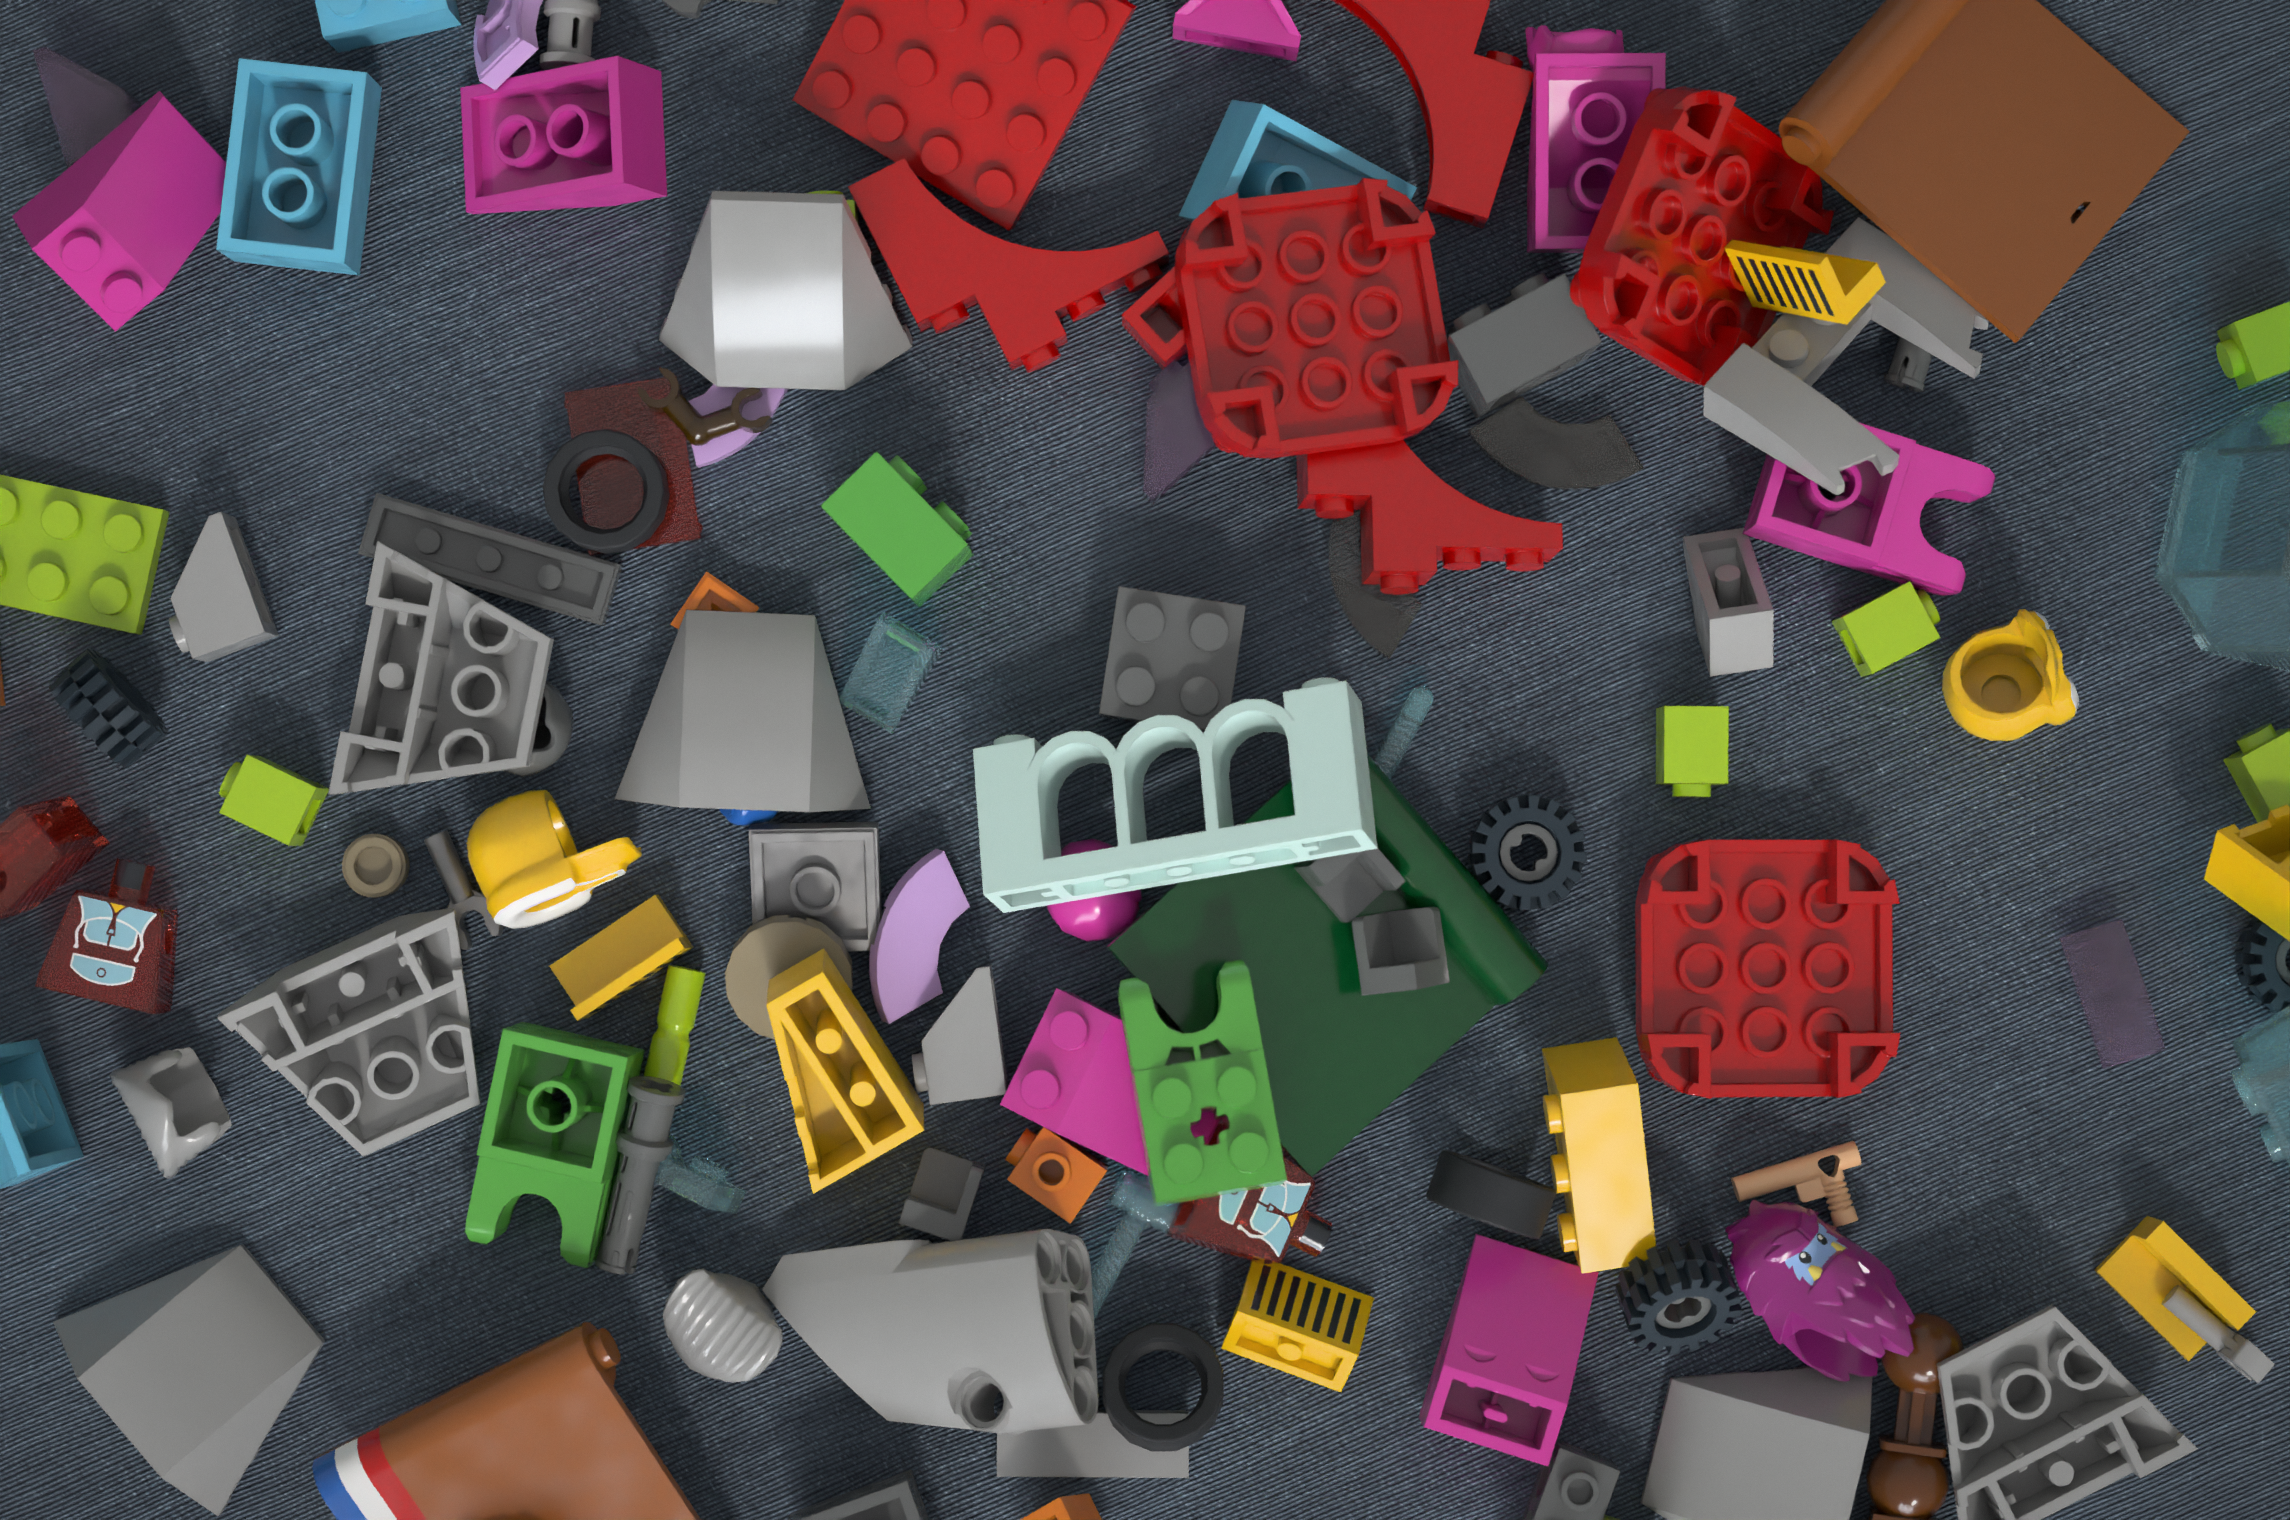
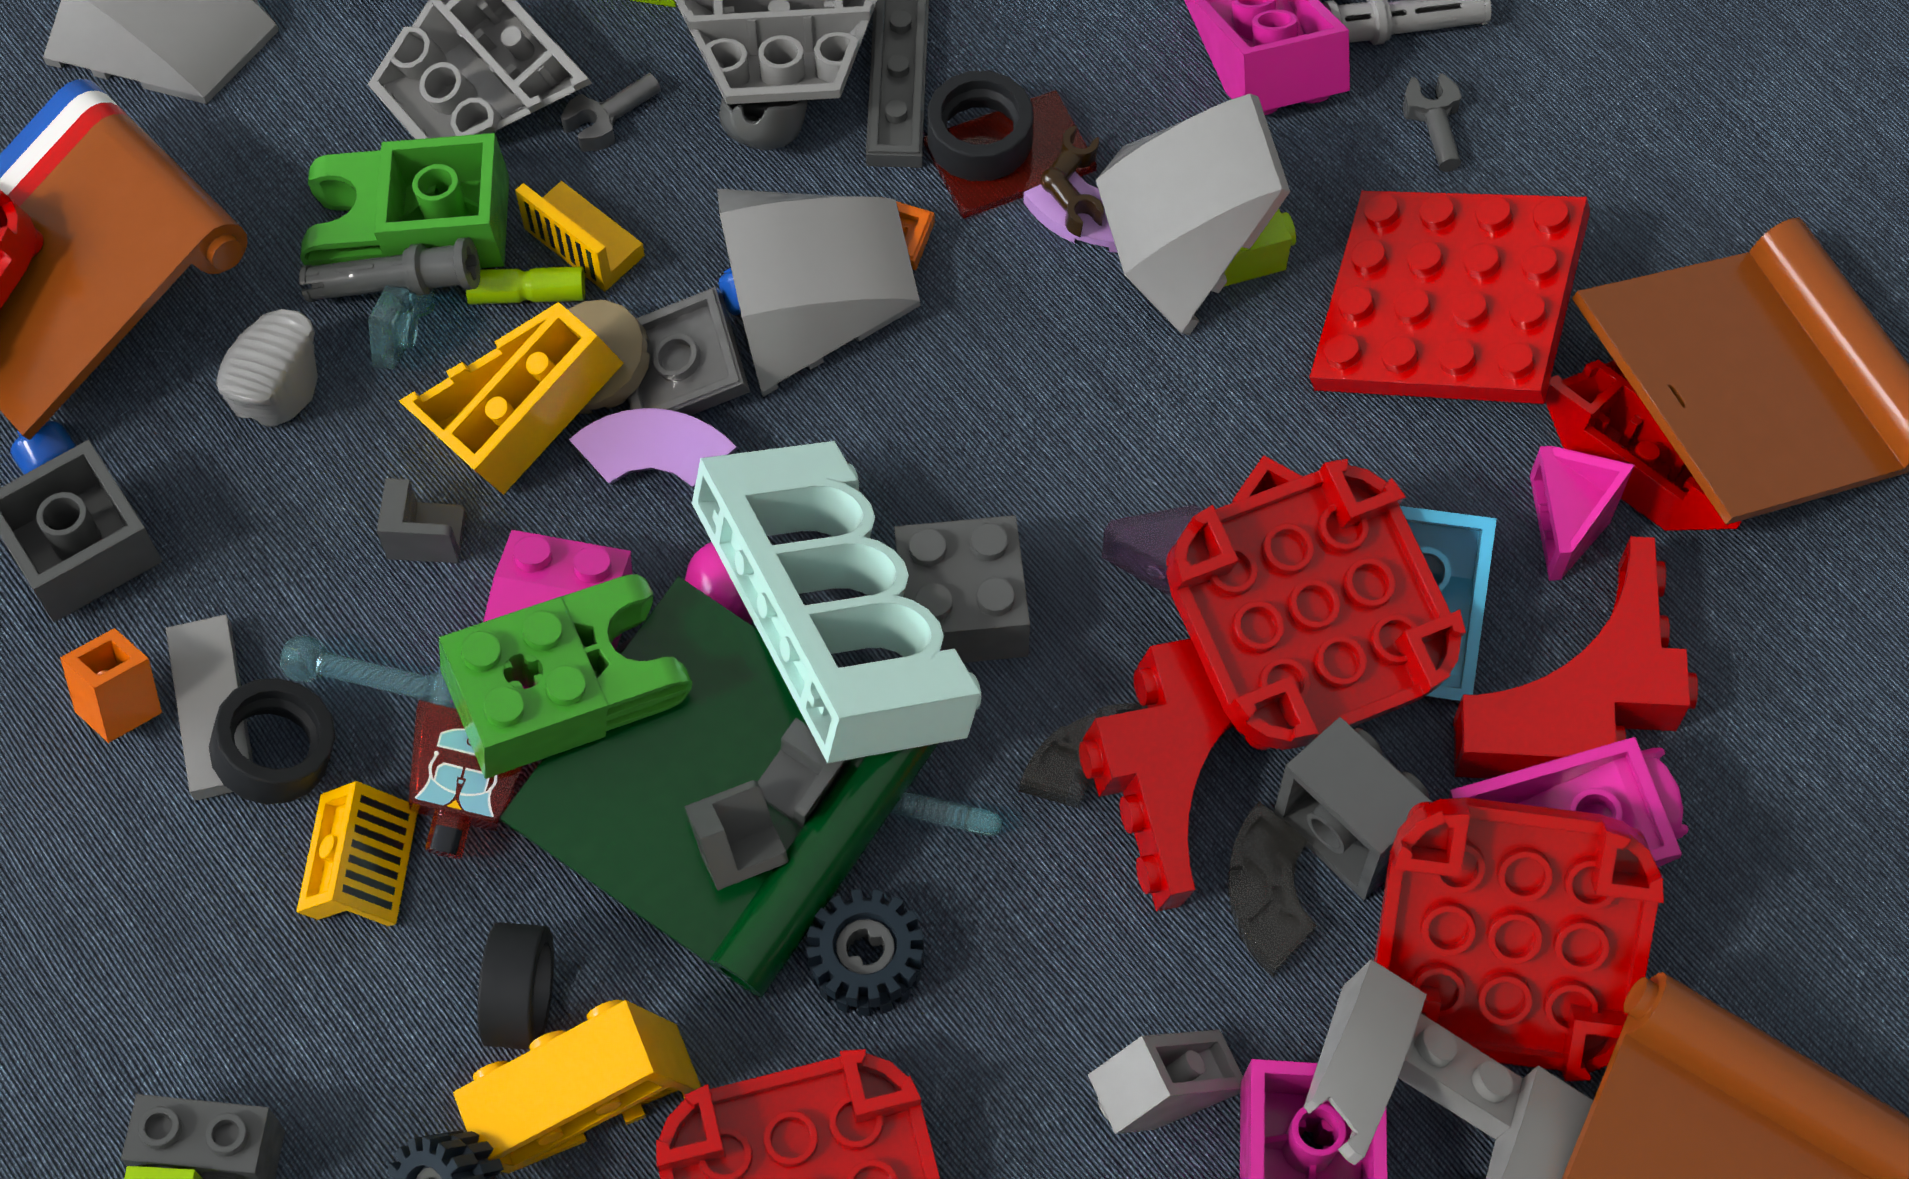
camera: 75 degrees right, 25 degrees down
(375, 865) = (618, 47): dark tan tile -> none
(532, 864) = (648, 145): yellow piece -> none
(889, 672) = (891, 373): clear light blue slope -> none
(898, 528) = (1014, 336): bright green brick -> none
(951, 1325) = (298, 552): light grey panel -> none
(964, 1046) = (570, 502): light grey slope -> none
(1020, 289) = (1256, 341): red arch -> none
(1054, 1171) = (453, 599): orange brick -> none
(1509, 1350) = (360, 1049): dark pink slope -> none
(1692, 748) = (1011, 1080): lime brick -> none
(1804, 280) = (1503, 1044): yellow panel -> none

